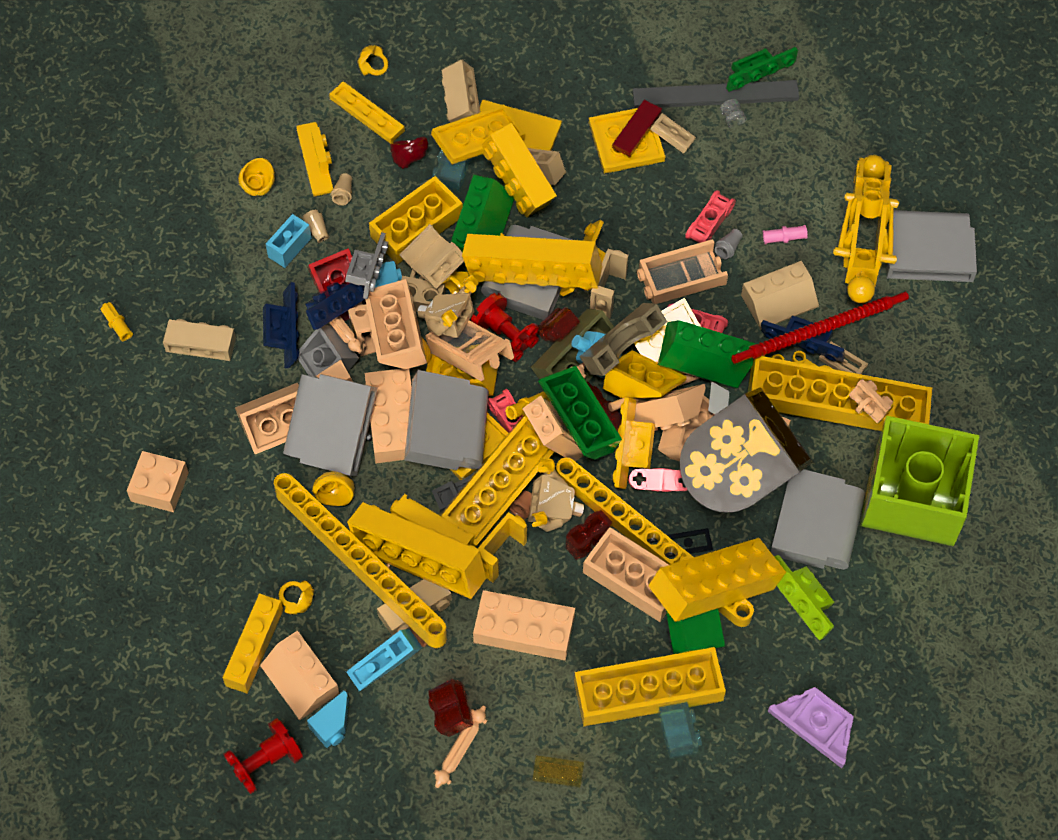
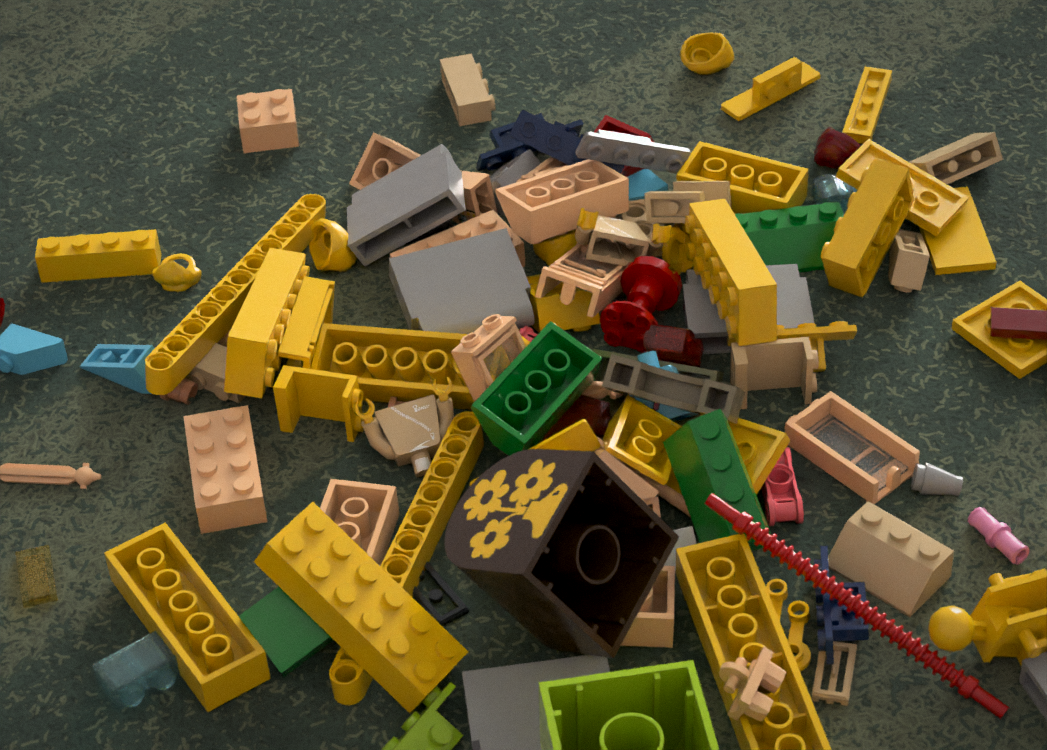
camera: 70 degrees right, 20 degrees down
(116, 321) = (453, 31): yellow axle -> none
(288, 240) = (637, 101): medium azure brick -> none
(299, 675) = (82, 307): light nougat slope -> none
(317, 225) = (680, 119): tan cone -> none
(342, 191) = (744, 123): tan cone -> none
(365, 67) = (944, 72): yellow piece -> none
(450, 708) = (75, 443): clear red brick -> none
(585, 536) = (376, 469): clear red brick -> none
(718, 208) = (962, 447): coral piece -> none

